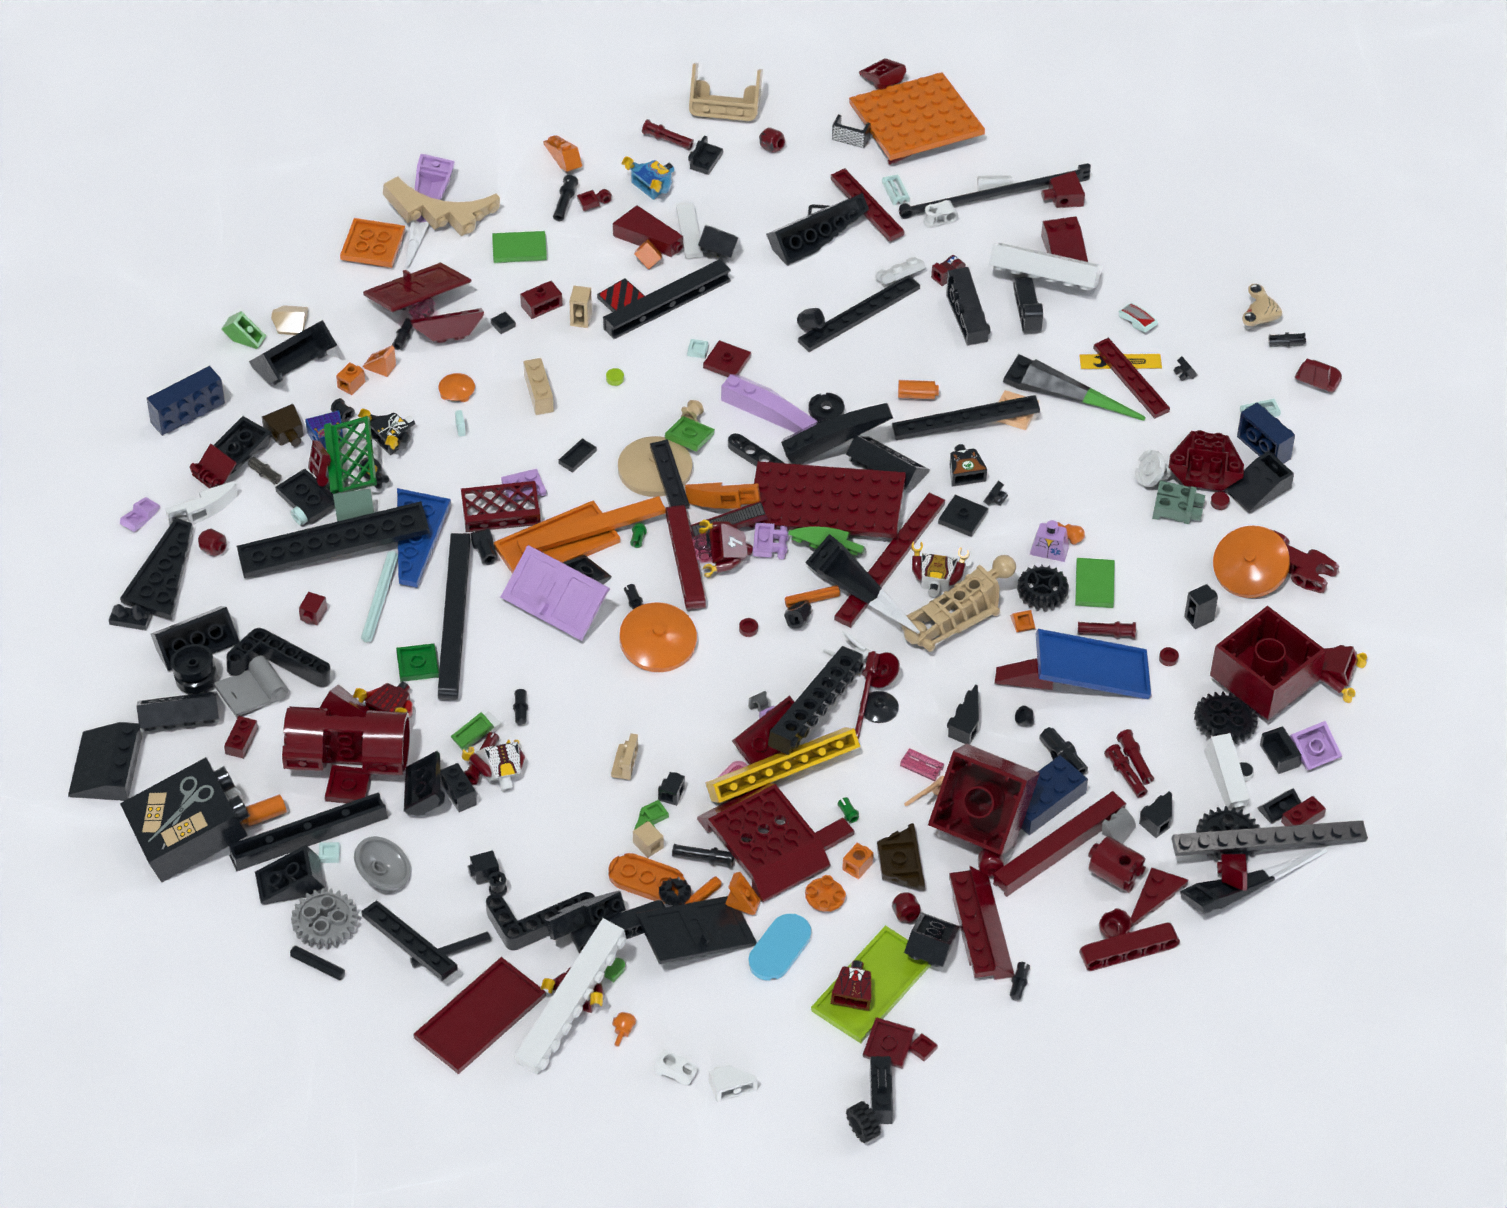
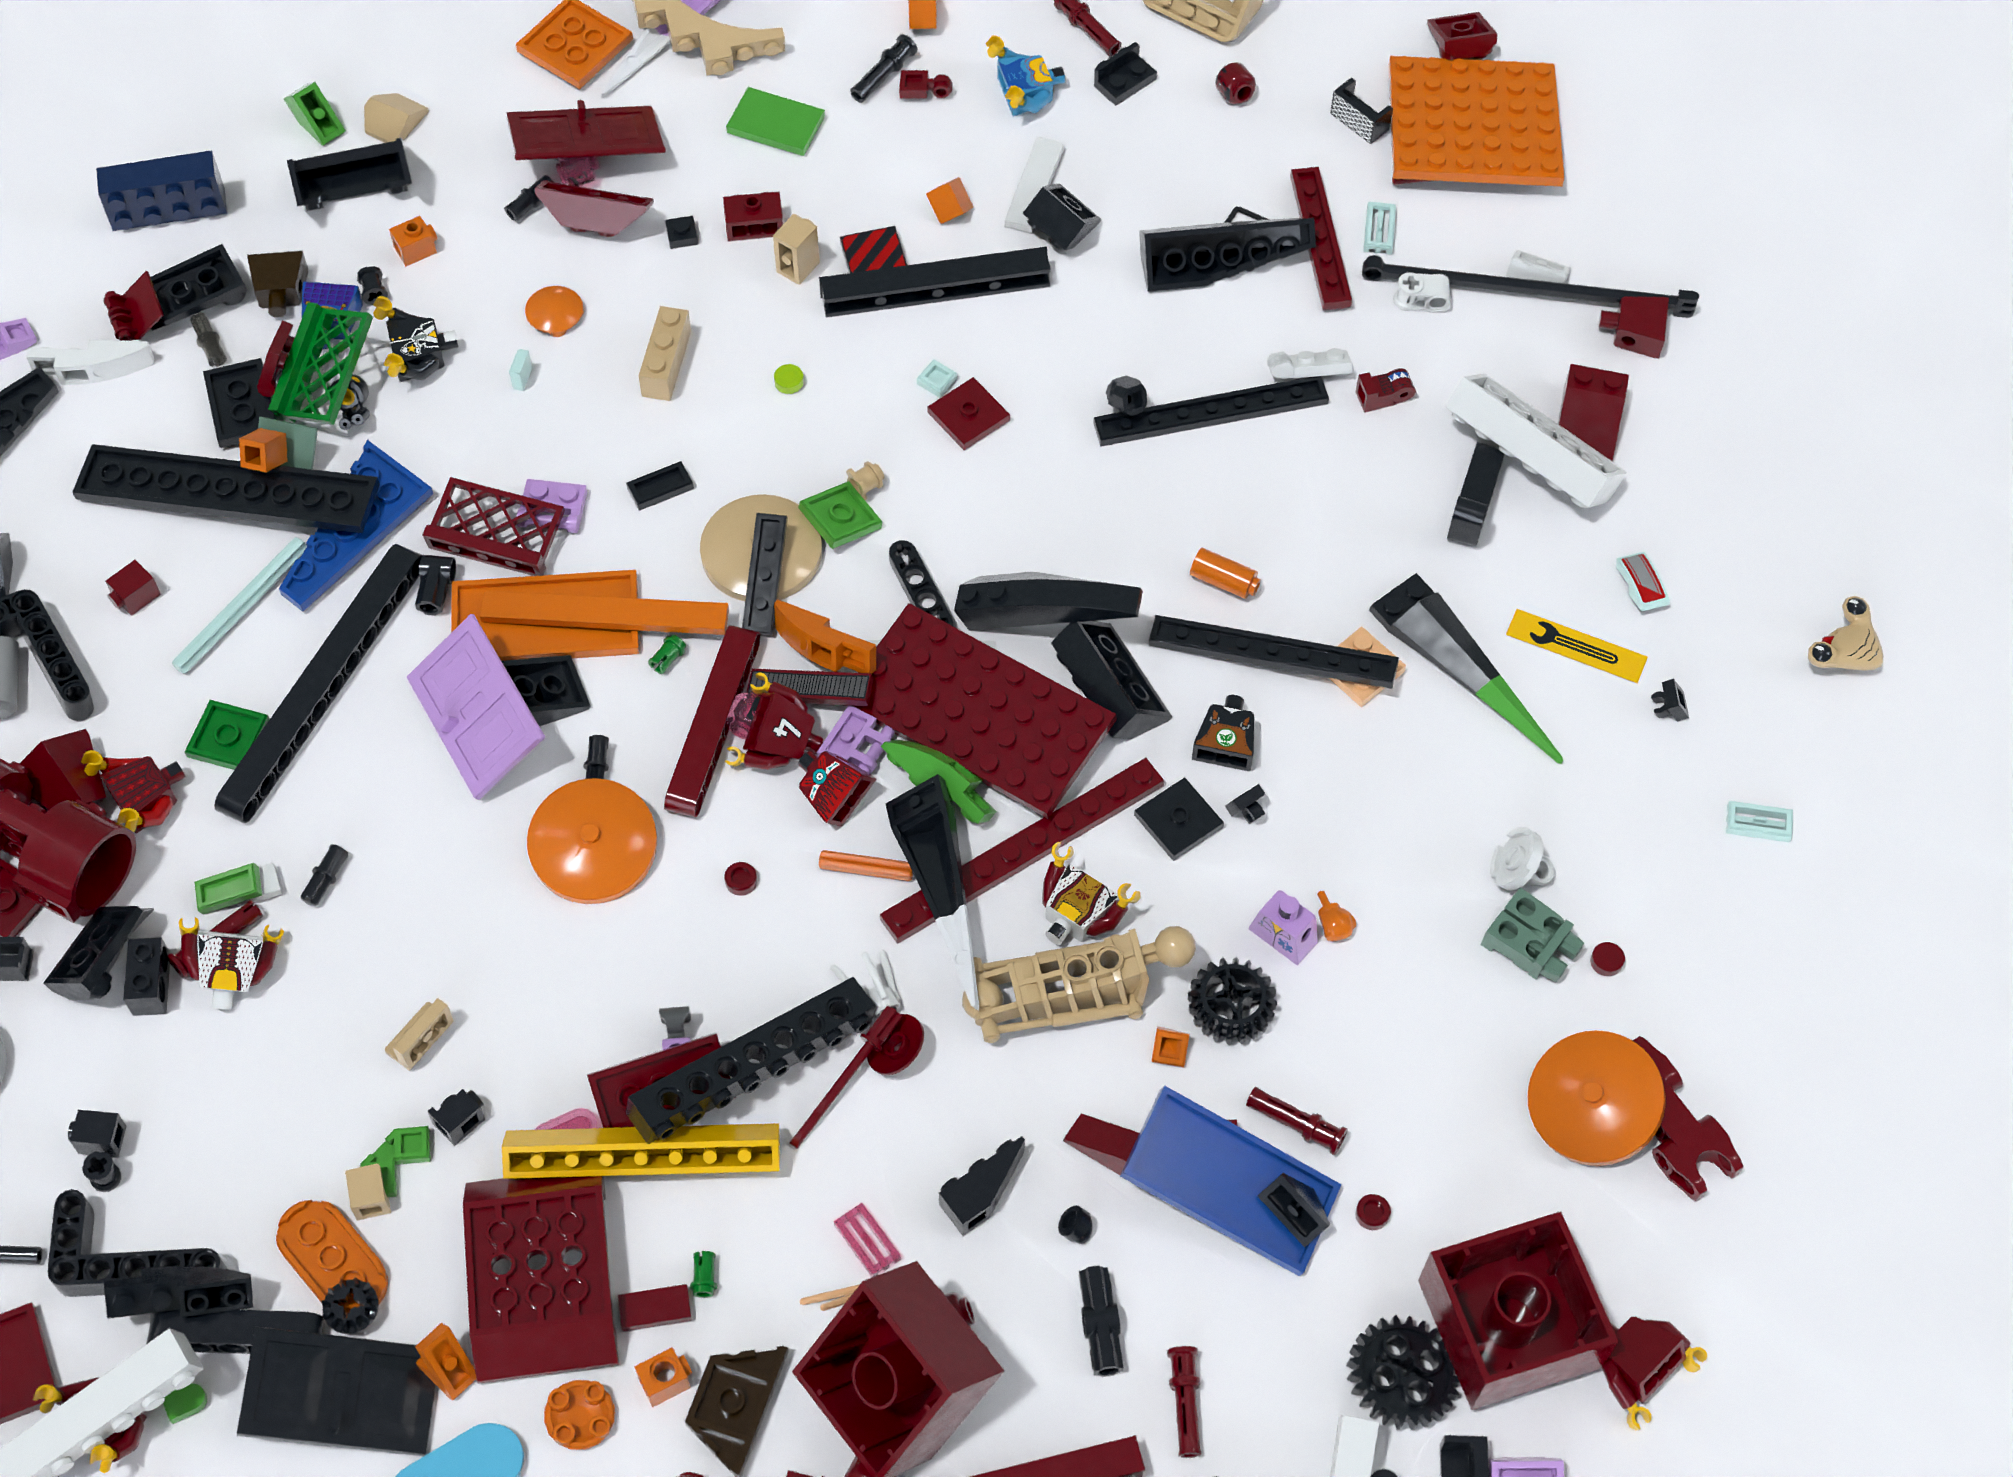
camera: 25 degrees right, 10 degrees up
(212, 542) = (65, 425): dark red head -> none
(299, 516) = (207, 430): light aqua tile -> none
(347, 509) = (263, 450): none -> orange brick
(382, 361) = (473, 232): orange slope -> none
(639, 225) = (964, 153): dark red slope -> none
(706, 890) = (397, 1324): orange axle -> none
(713, 856) = (447, 1265): black pin -> none
(763, 403) = (982, 506): lavender wedge -> none
(773, 561) = (833, 785): none -> torso
(798, 614) = (824, 889): black rock -> none
(829, 399) = (1069, 564): black tile -> none
(881, 712) = (866, 1117): black dish -> none
(966, 306) = (1377, 464): black wedge -> none
(1055, 790) = (1037, 1389): dark blue brick -> none
(1094, 582) = (1323, 1024): bright green tile -> none
(1131, 378) = (1577, 683): dark red tile -> none
(1131, 665) = (1295, 1207): none -> black slope
(1132, 749) = (1217, 1364): dark red pin -> none
(1201, 606) = (1467, 1147): black brick -> none
(1206, 461) = (1619, 879): dark red wedge -> none
(1261, 482) = (1688, 955): black slope -> none
(1265, 433) = (1740, 875): dark blue brick -> none
(1287, 339) = (1868, 712): black pin -> none
(1319, 375) = (1890, 796): dark red piece -> none

